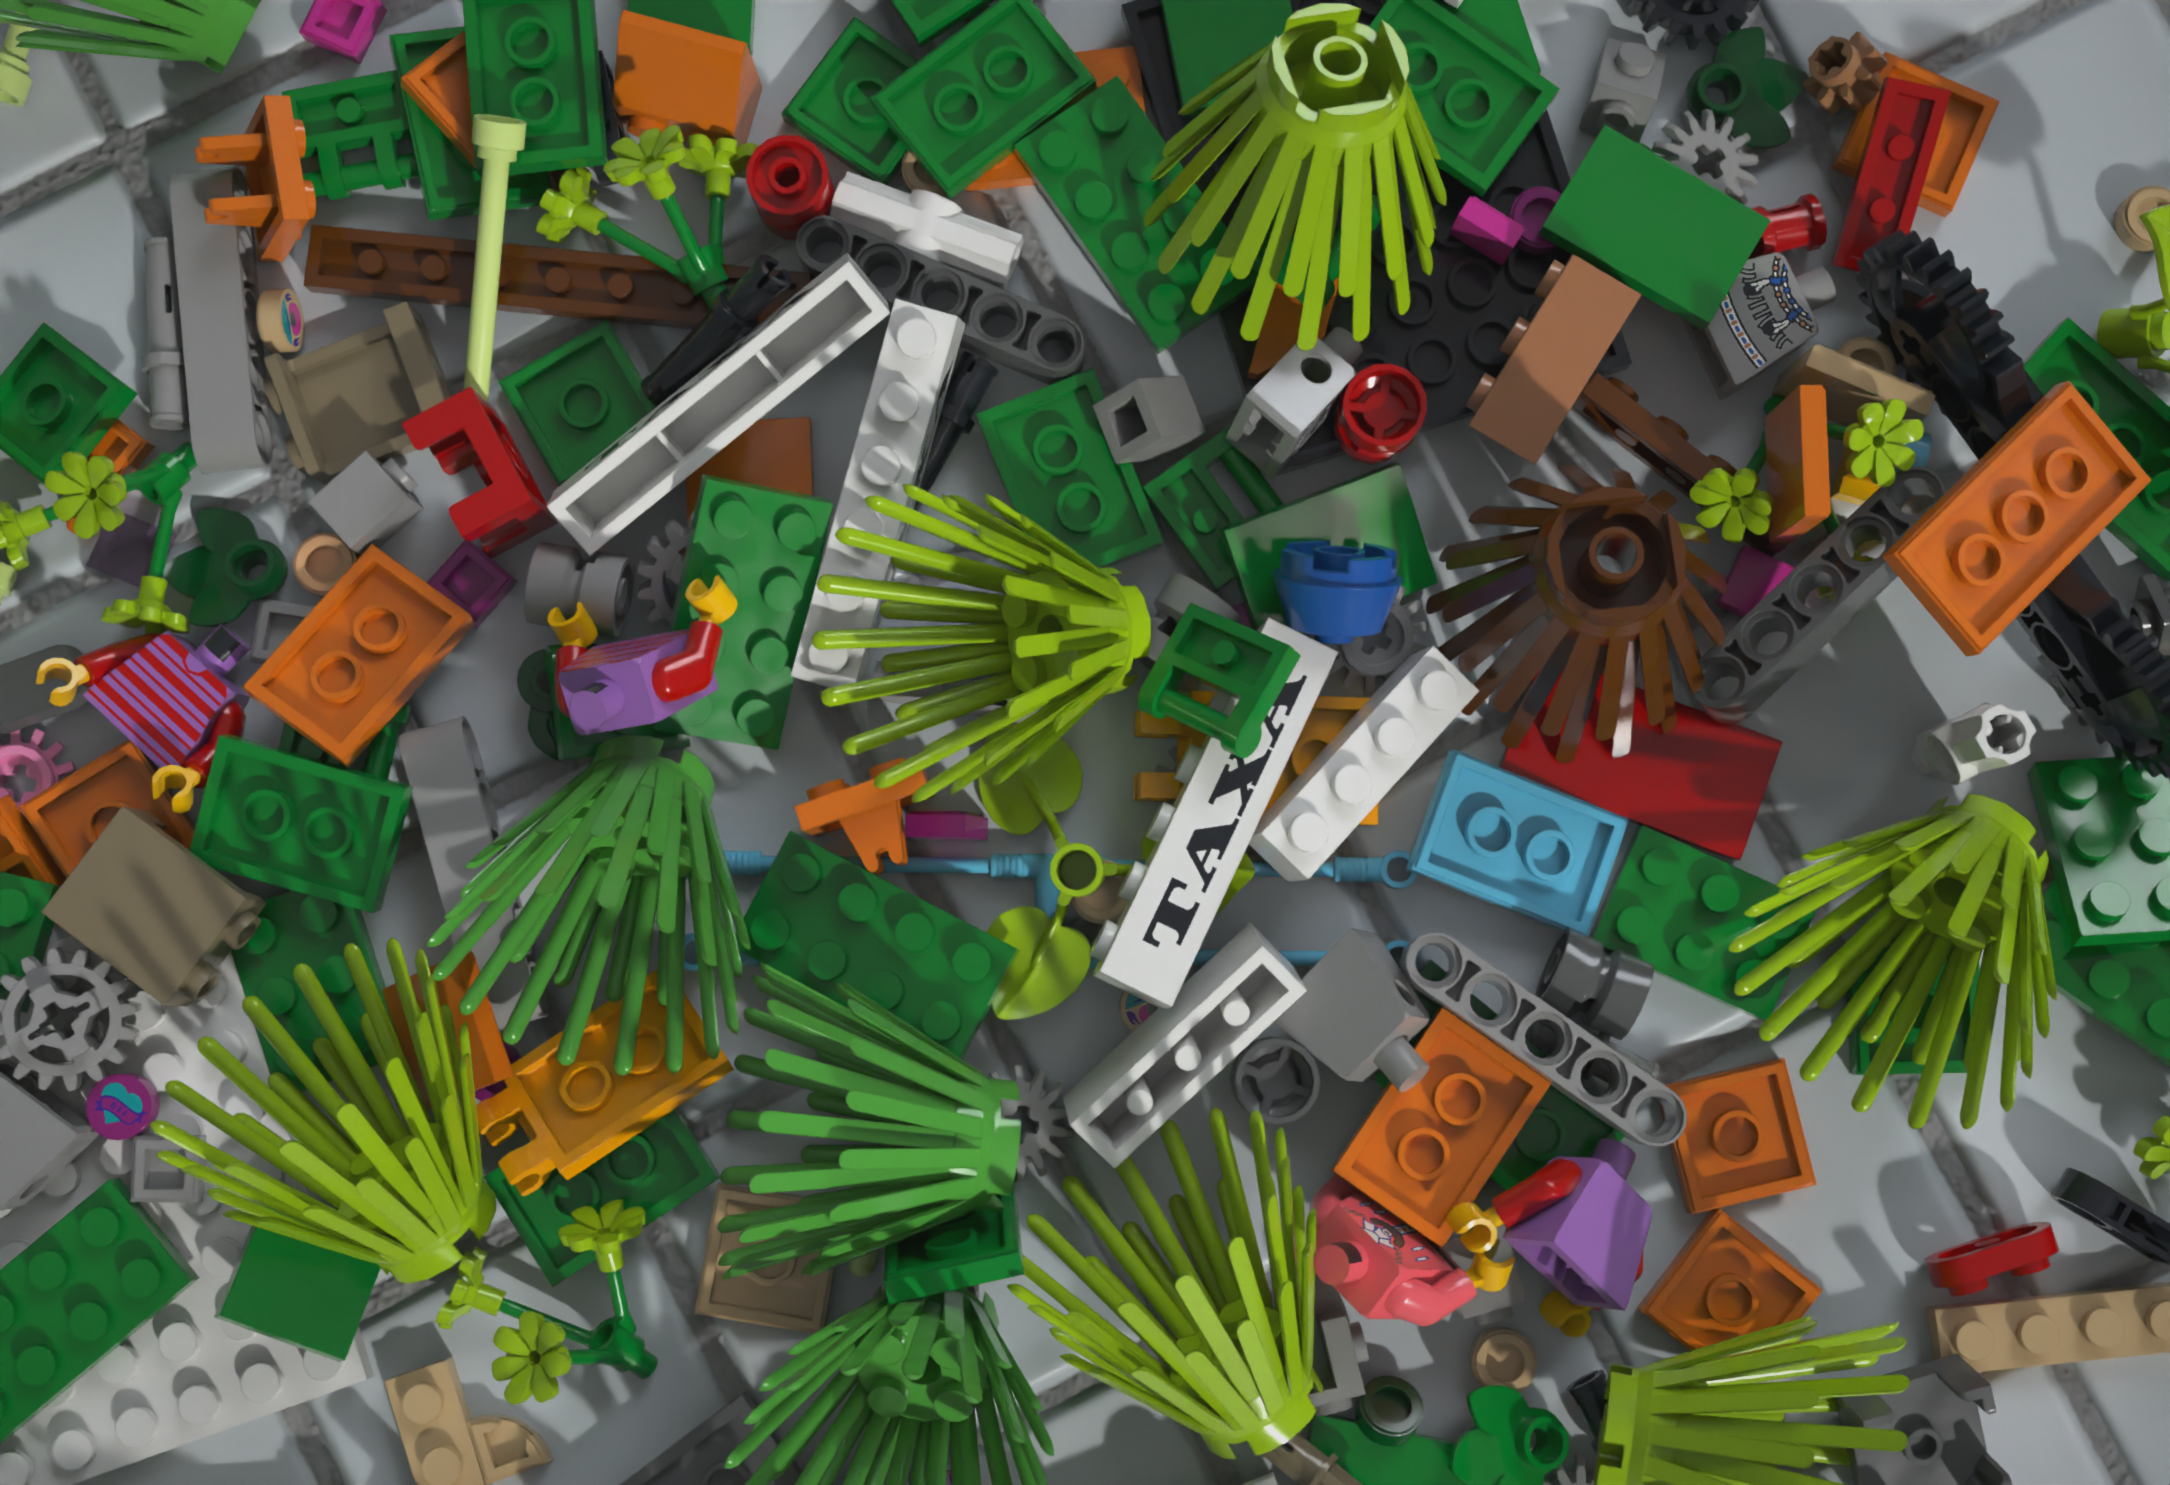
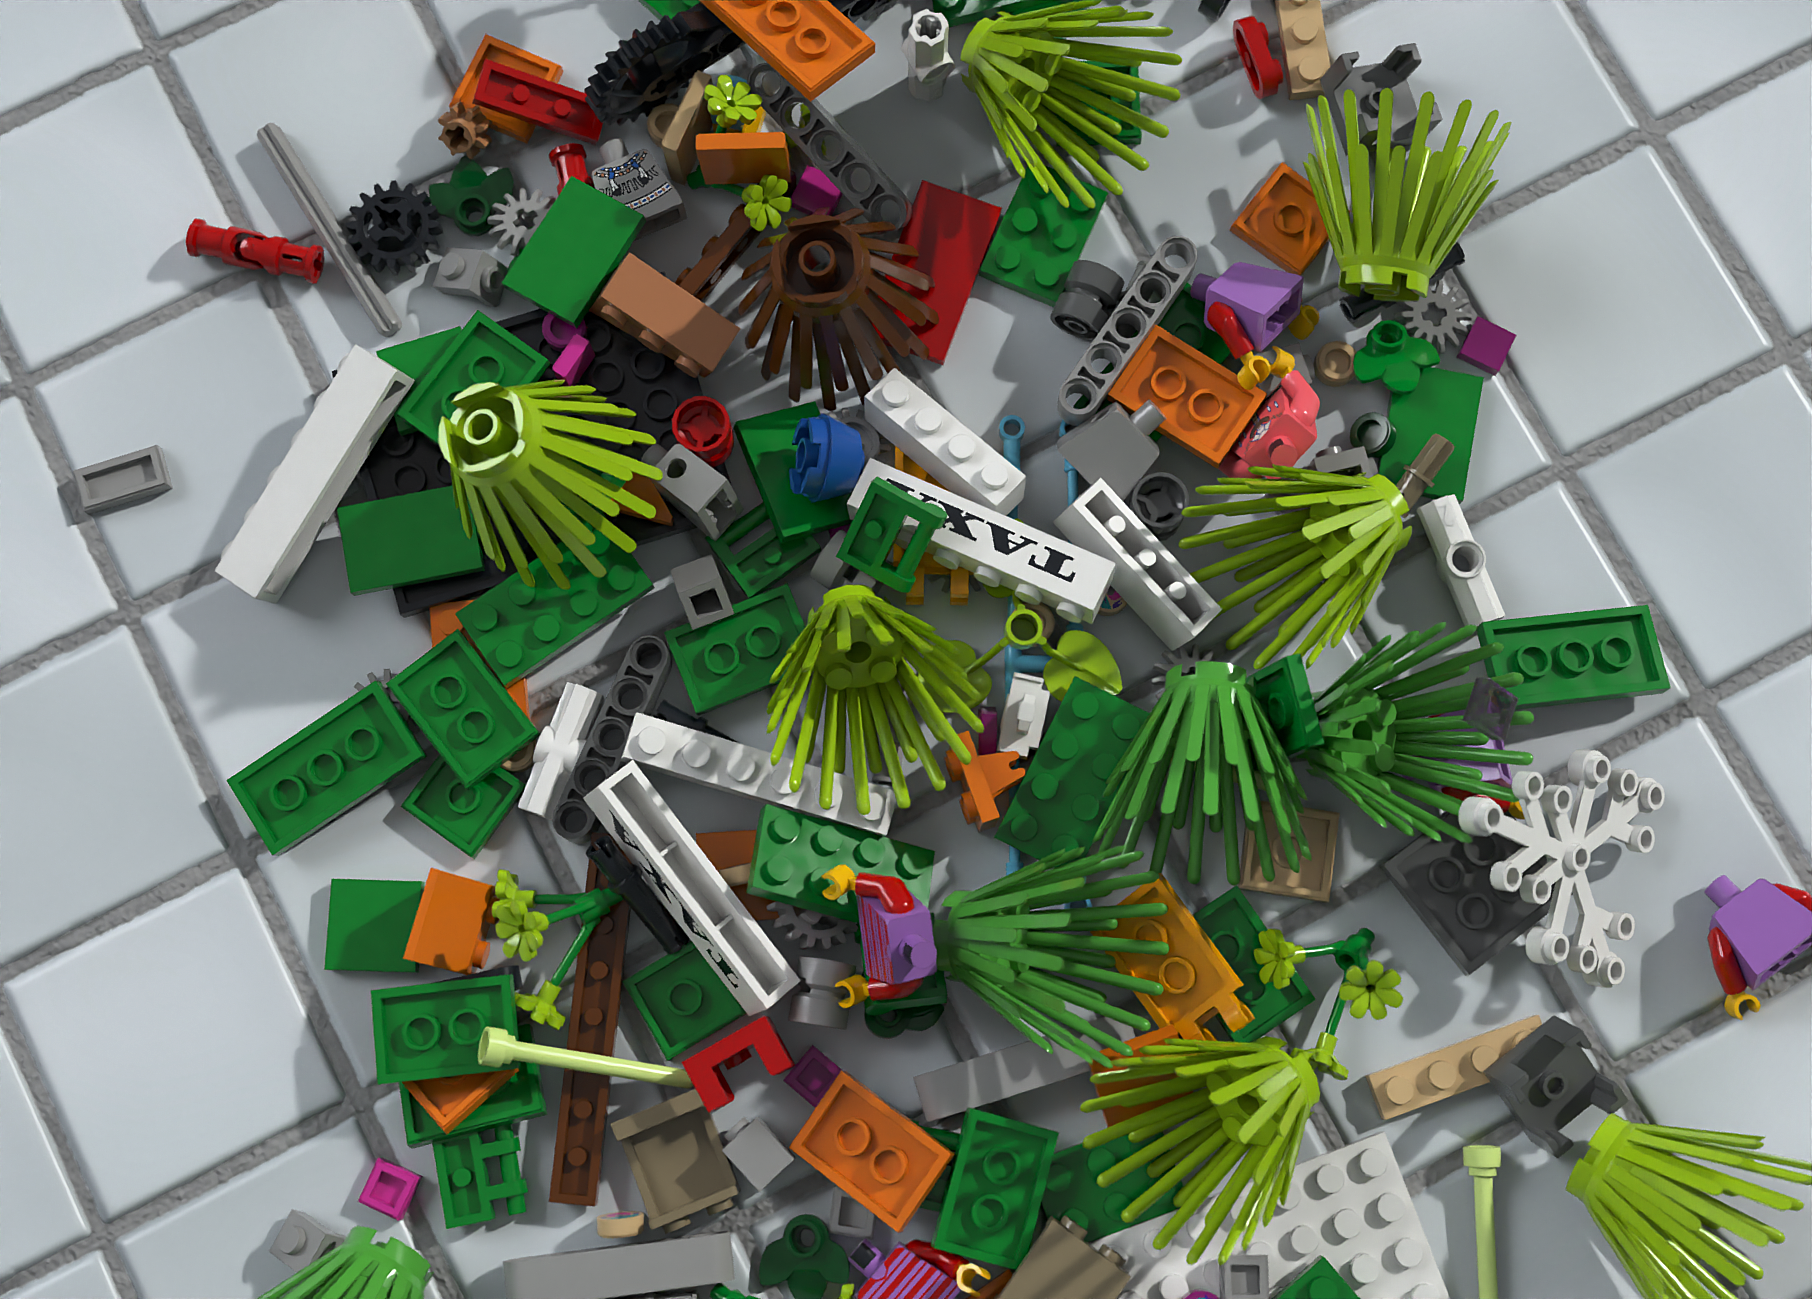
camera: 90 degrees left, 5 degrees down
(277, 197) = (516, 1229): orange plate -> none
(298, 1293) = (1328, 1177): green tile -> none
(322, 562) = (801, 1185): light nougat tile -> none
(506, 1446) = (1425, 1032): tan tile -> none
(743, 465) = (736, 875): none -> tan tile
(789, 184) = (529, 845): red wheel -> none
(962, 874) = (1023, 715): none -> white piece
(1517, 843) = (993, 350): medium azure tile -> none
(1739, 1137) = (1185, 206): orange tile -> none

